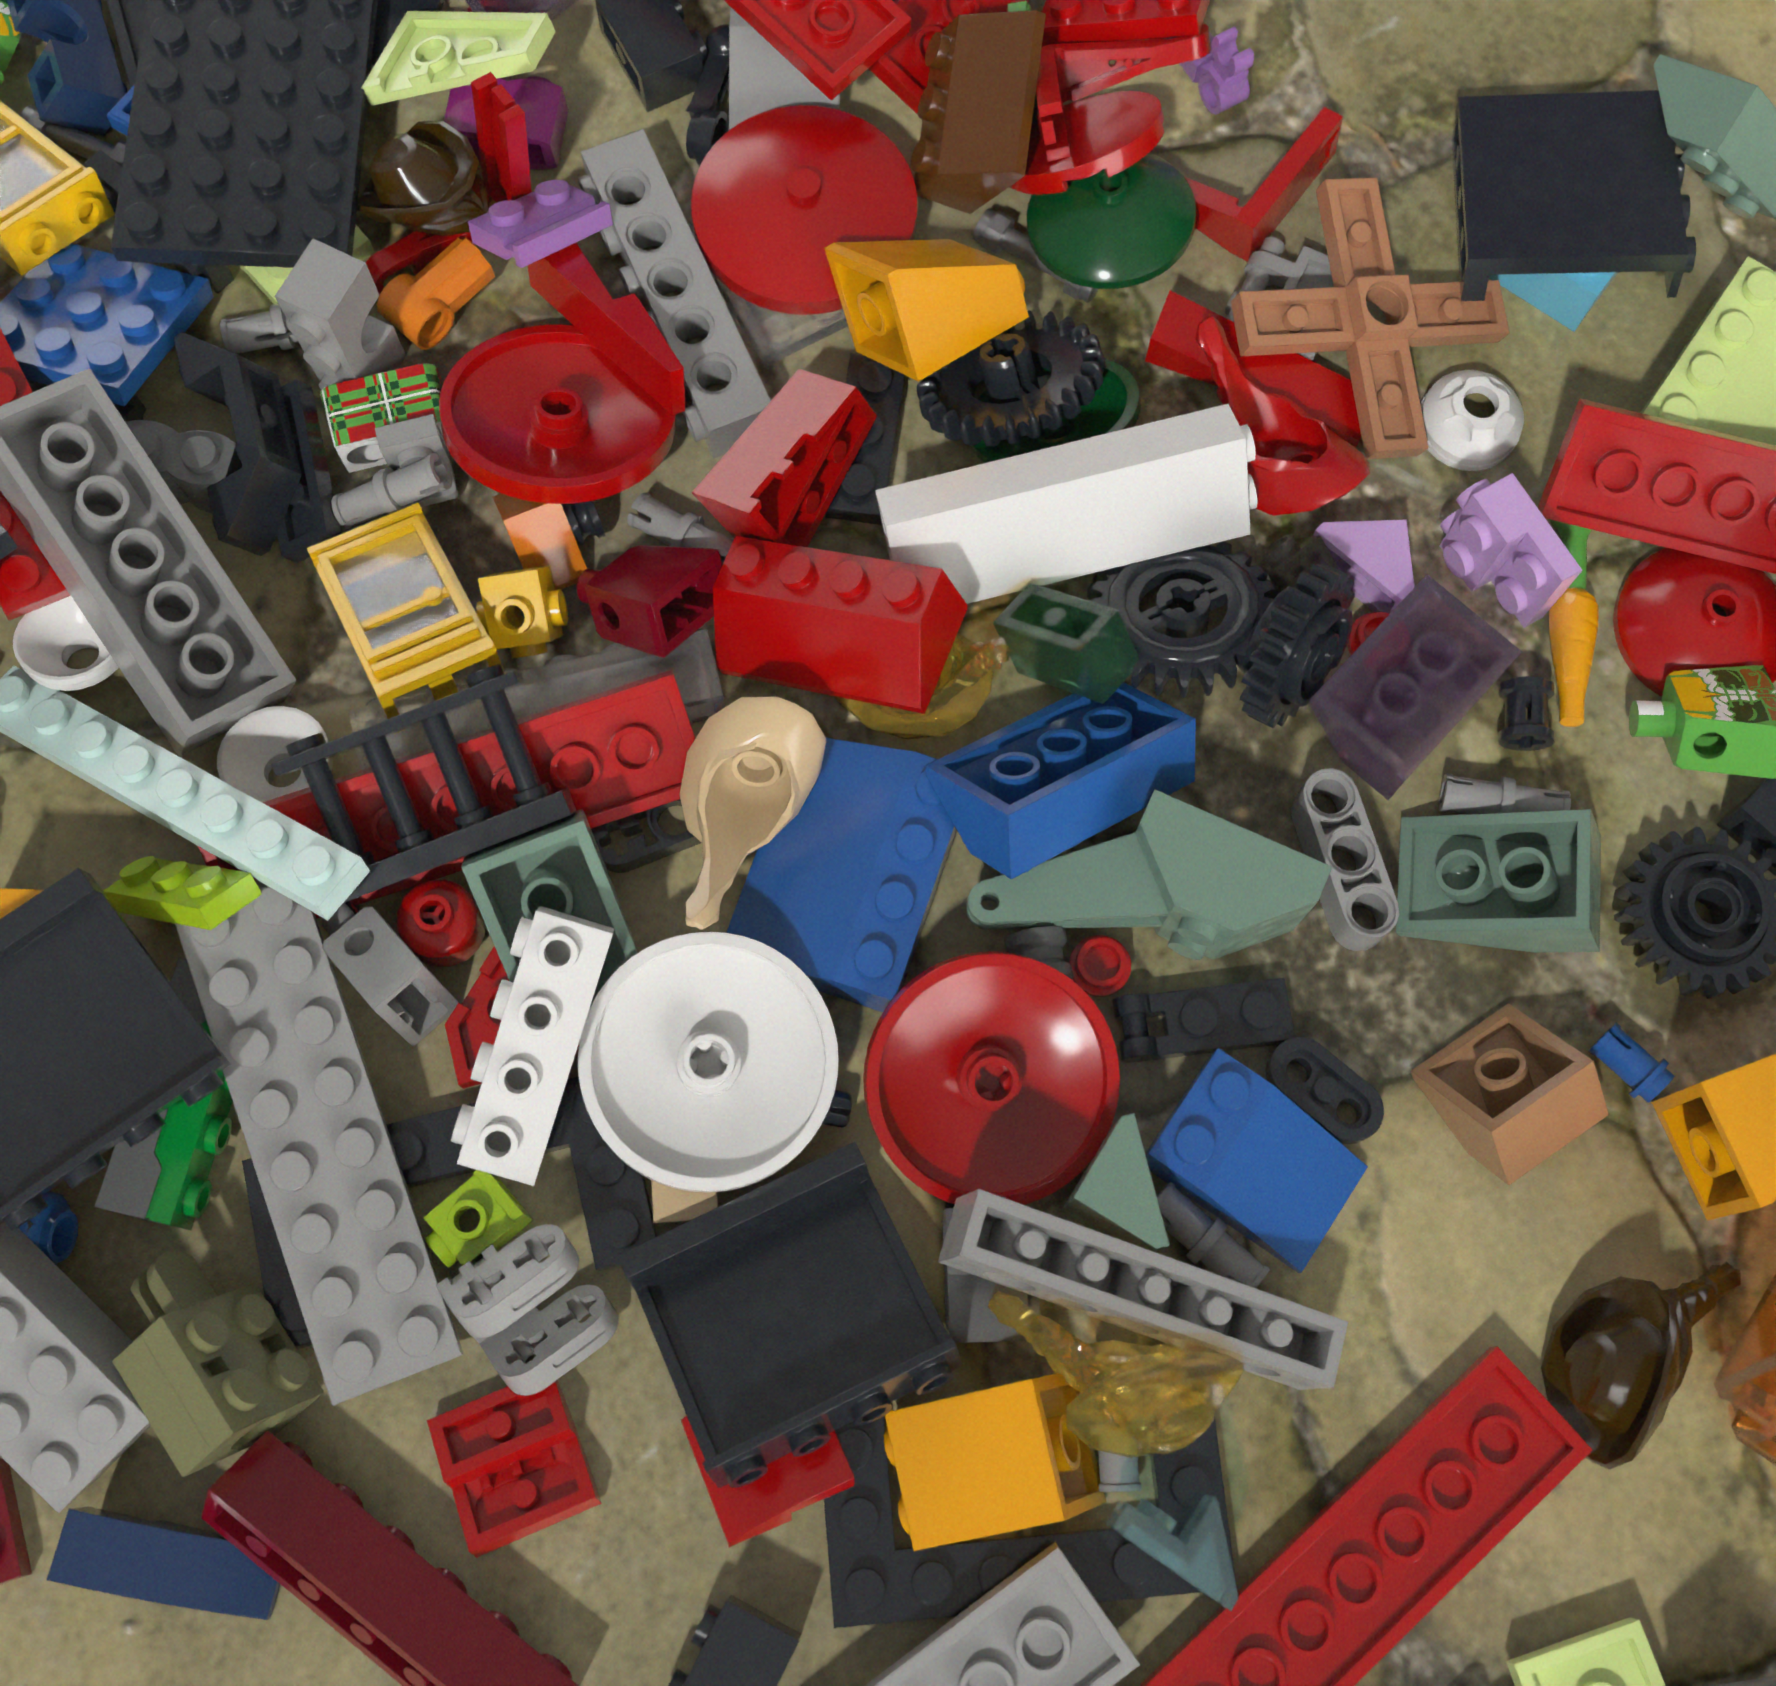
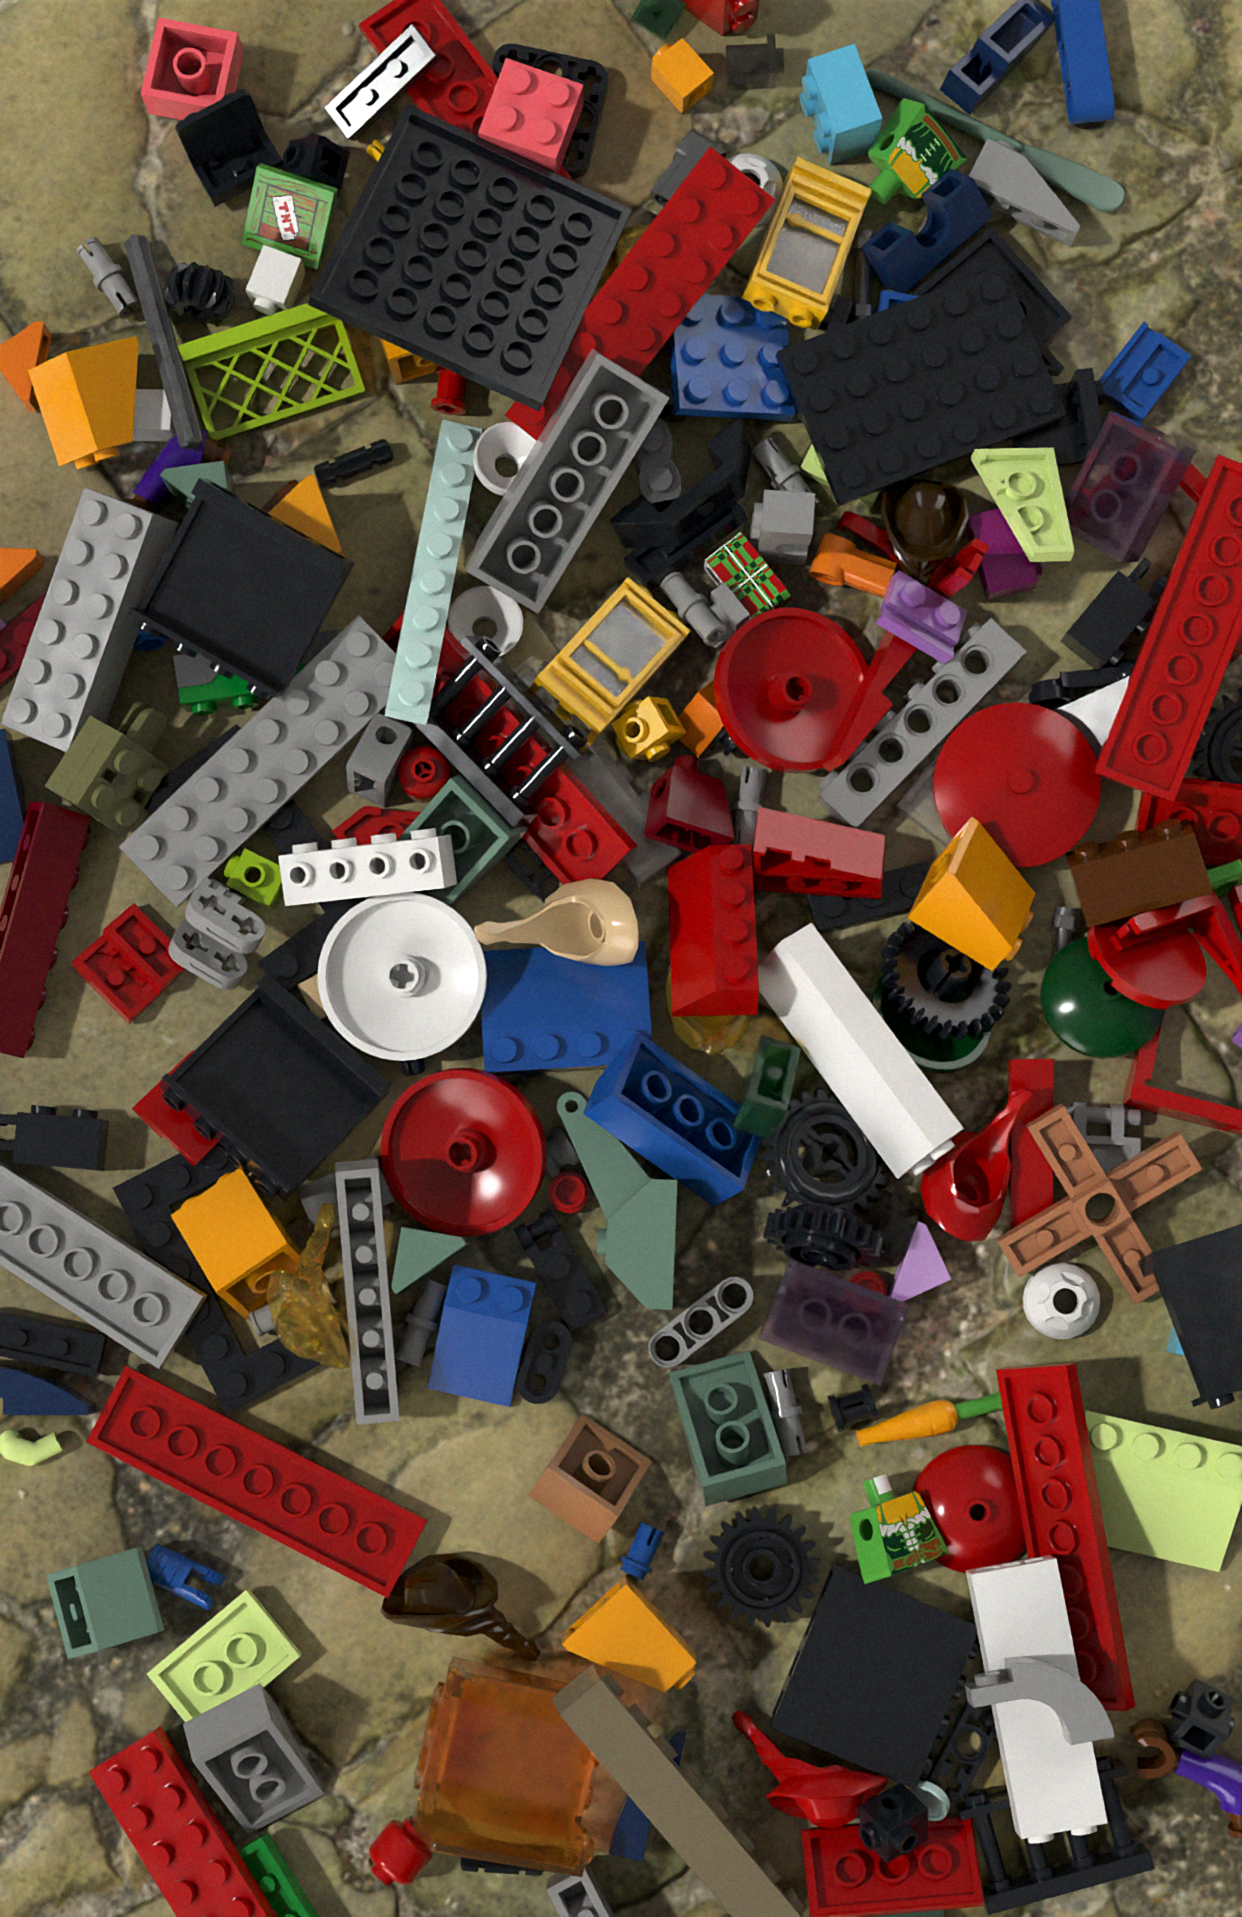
camera: 70 degrees right, 10 degrees up
(181, 892) = (374, 613): lime plate -> none
(1198, 1553) = (228, 1378): clear light blue slope -> none
(1508, 542) = (964, 1341): lavender plate -> none

